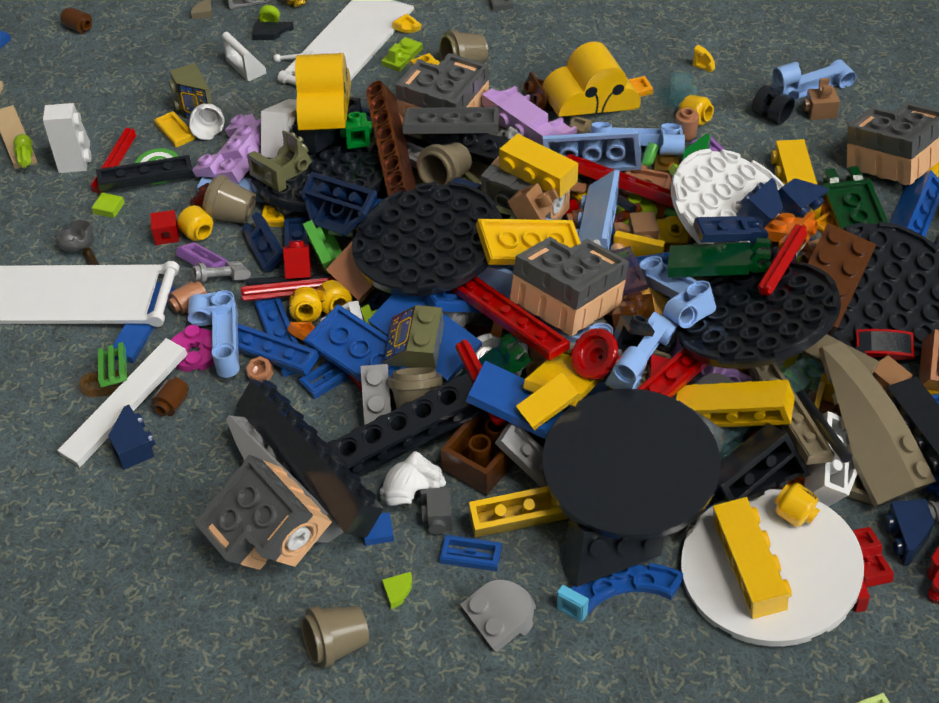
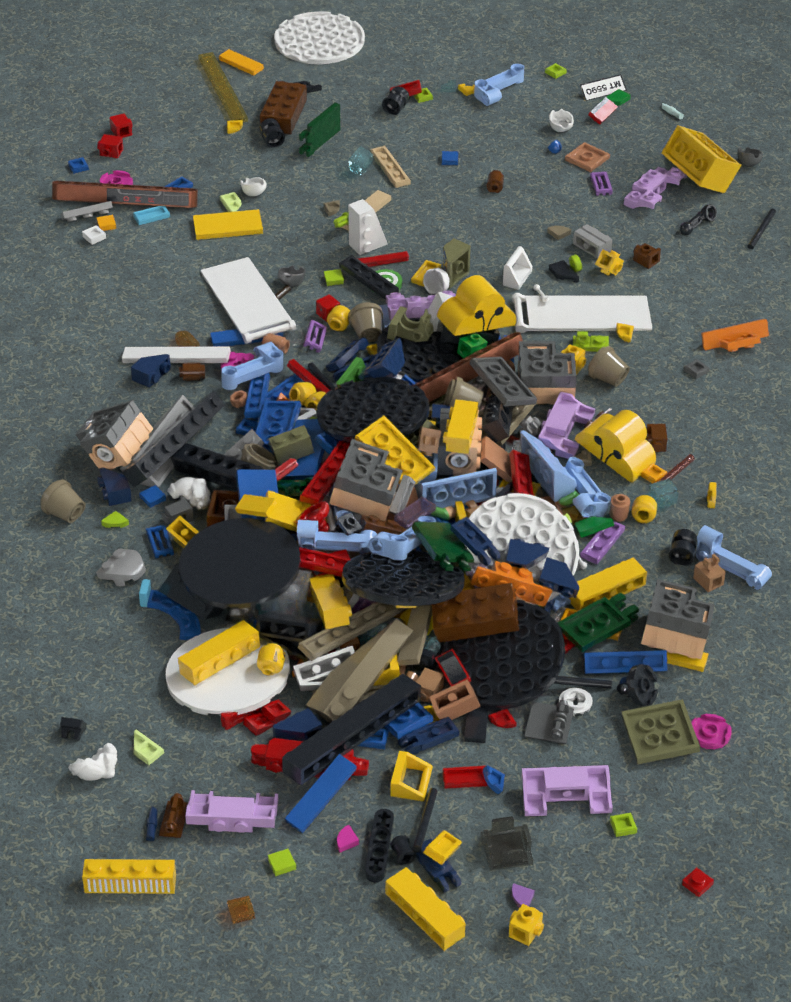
camera: 60 degrees right, 5 degrees down
(102, 365) = (197, 336): bright green tile -> none
(234, 269) = (313, 354): light grey hinge -> none
(297, 260) = (332, 371): red brick -> none
(335, 562) = (115, 487): none -> dark blue slope
(644, 71) = (678, 468): none -> clear red bar
(782, 260) = (457, 571): red axle -> none
(824, 427) = (336, 646): black bar -> none

